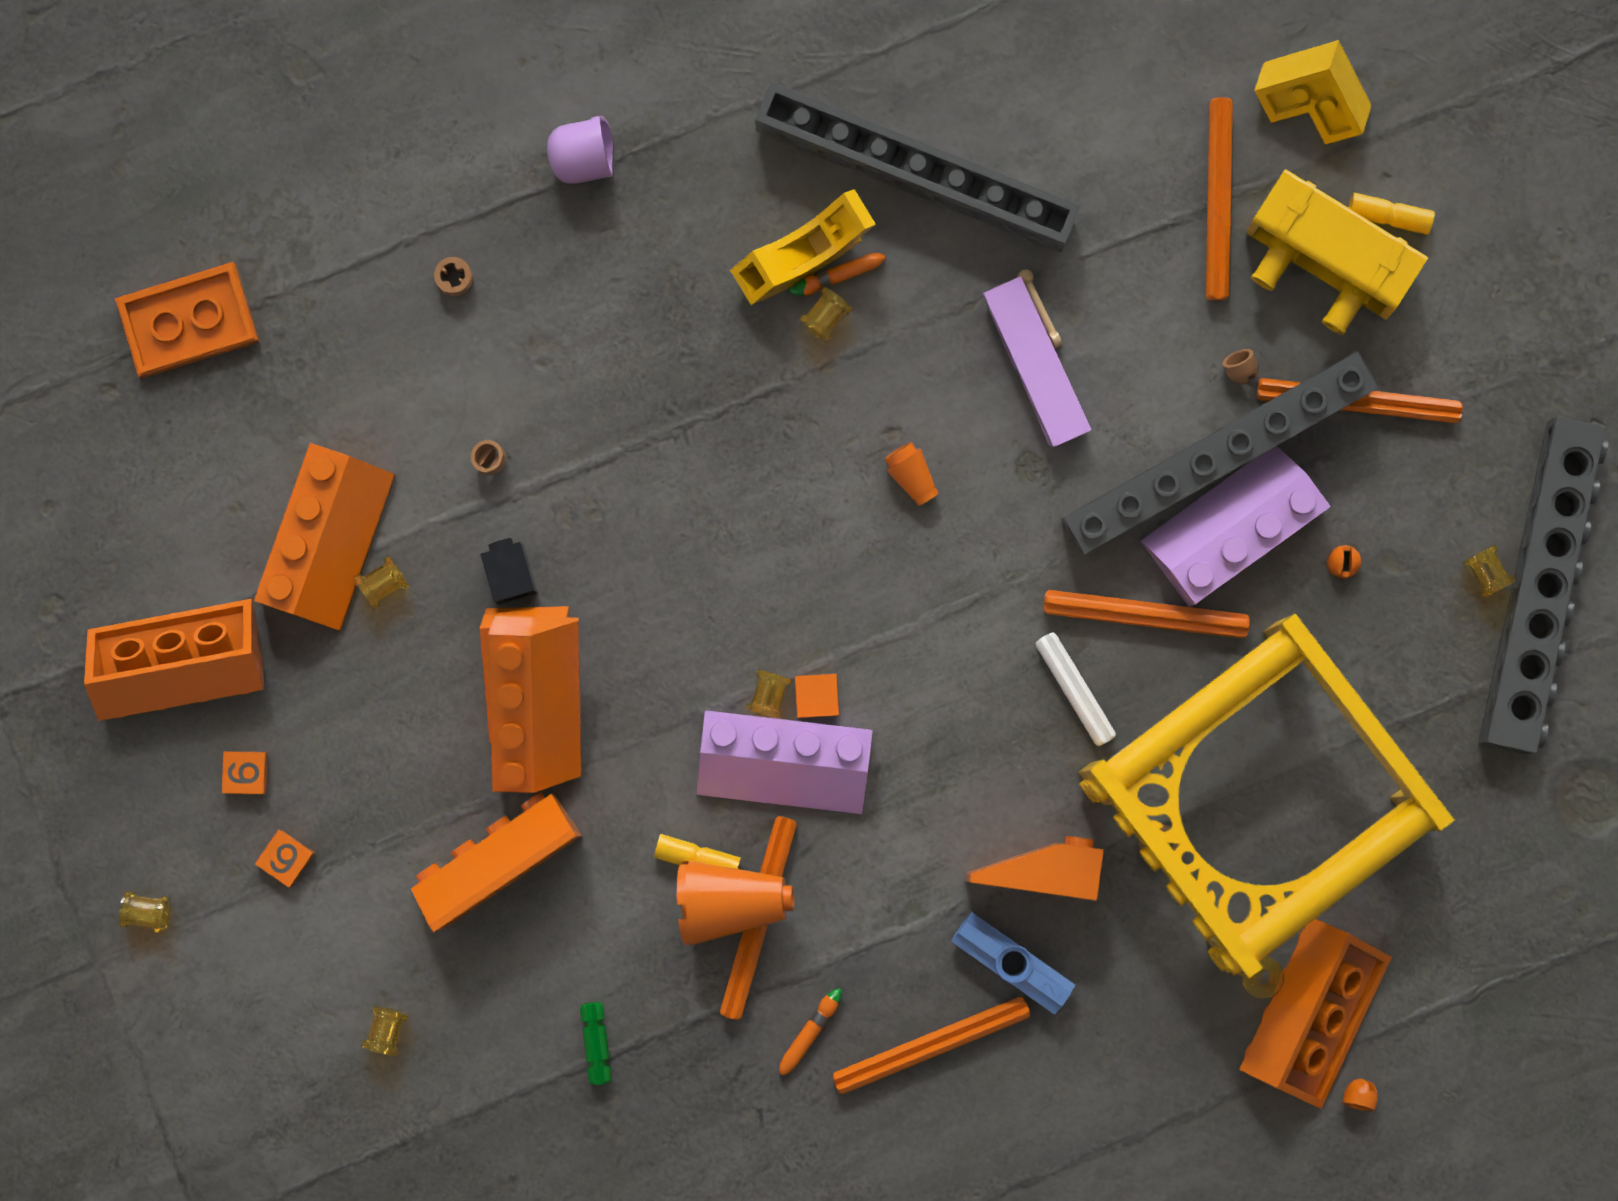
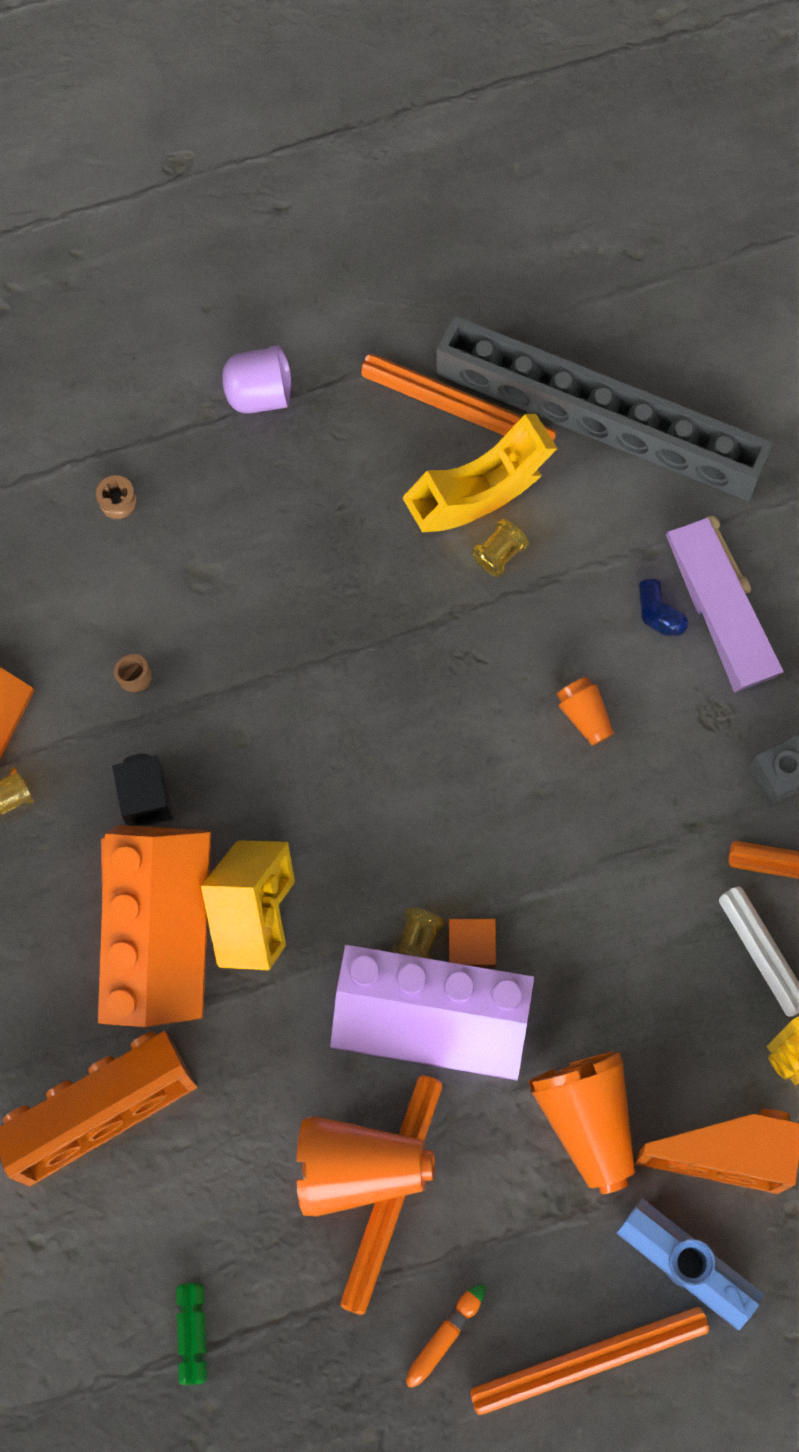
camera: 10 degrees right, 15 degrees down
(613, 671) = (244, 904): none -> yellow panel
(677, 850) = (298, 1106): yellow piece -> none
(773, 158) = (441, 395): none -> orange axle
(842, 272) = (486, 520): orange piece -> none
(925, 845) = (590, 1117): none -> orange cone
(976, 373) = (657, 613): none -> clear blue arm

